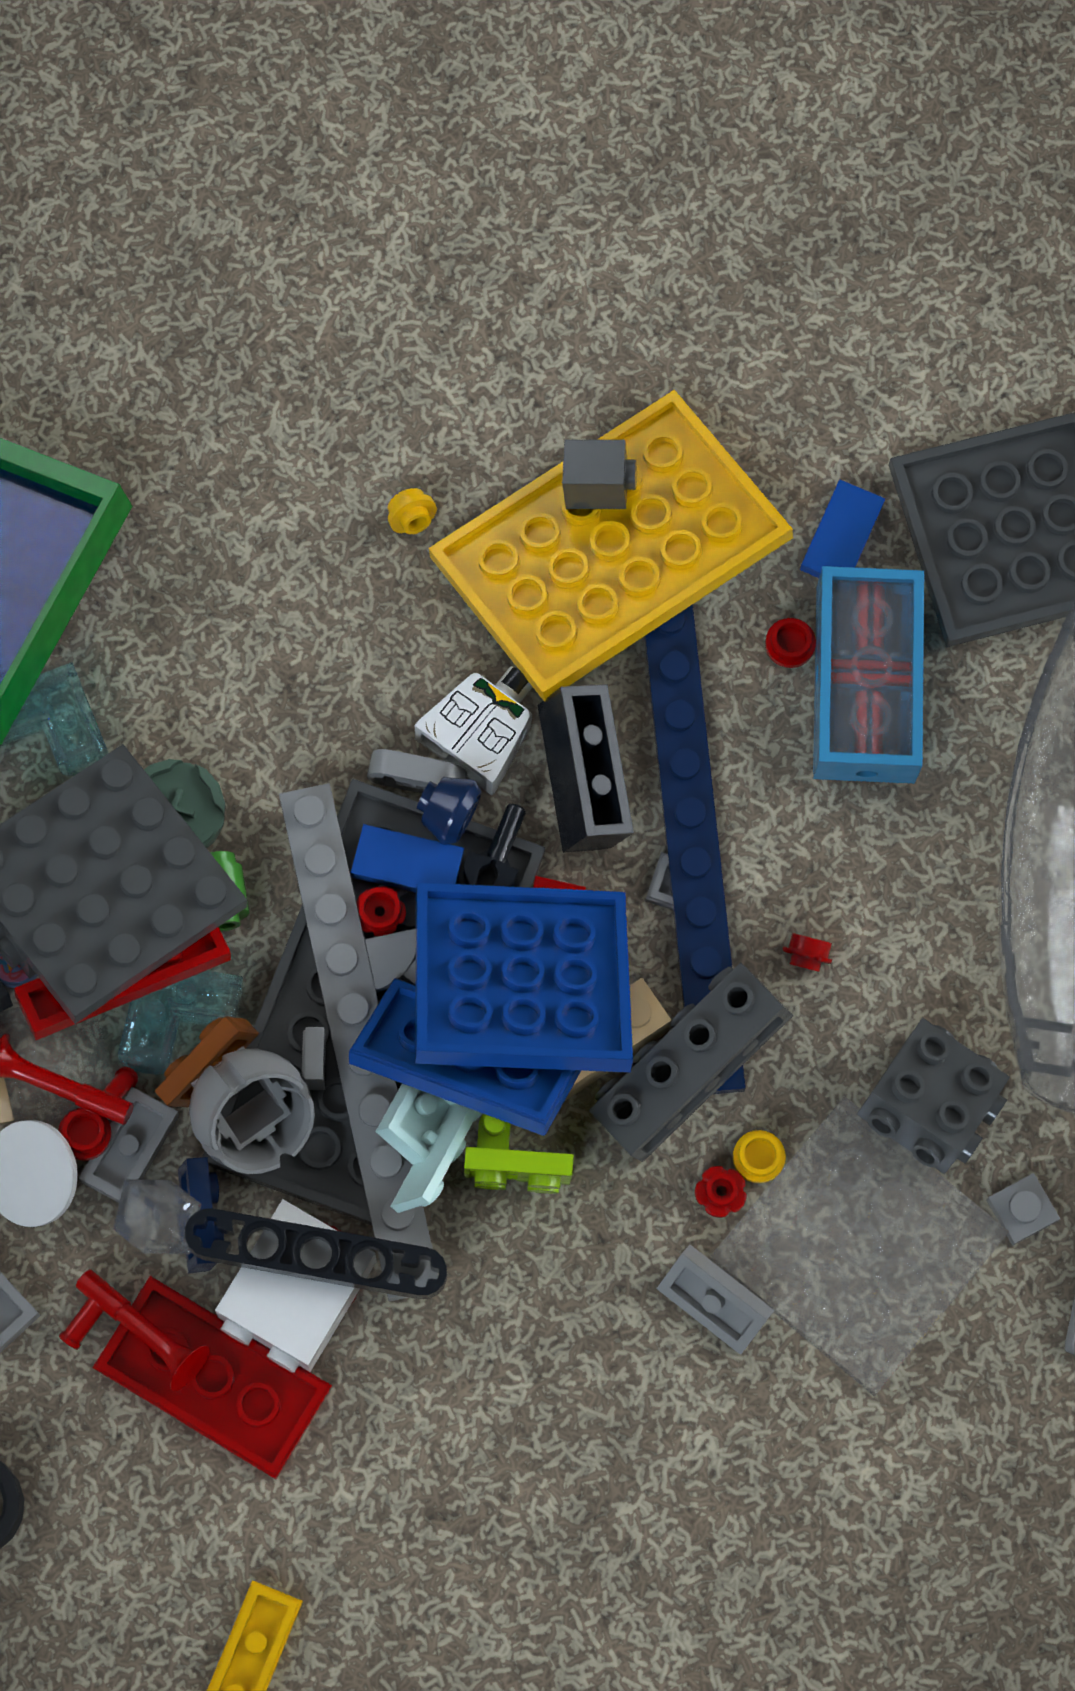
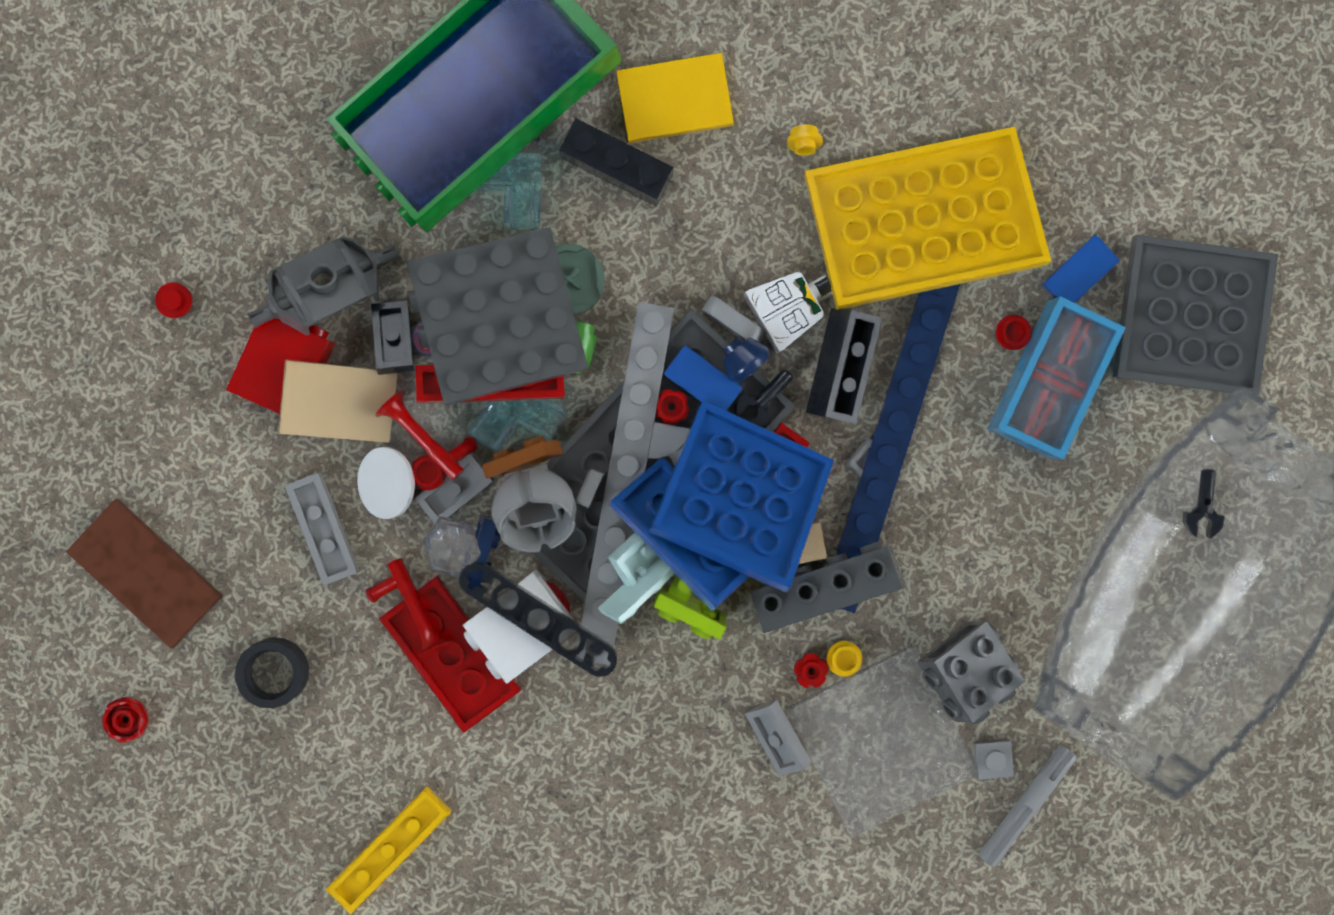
camera: 30 degrees right, 15 degrees up
(176, 634) = (616, 162): none -> black brick
(219, 528) = (675, 98): none -> yellow tile
(597, 474) = (939, 168): dark grey brick -> none
(808, 952) = (933, 542): red plate -> none

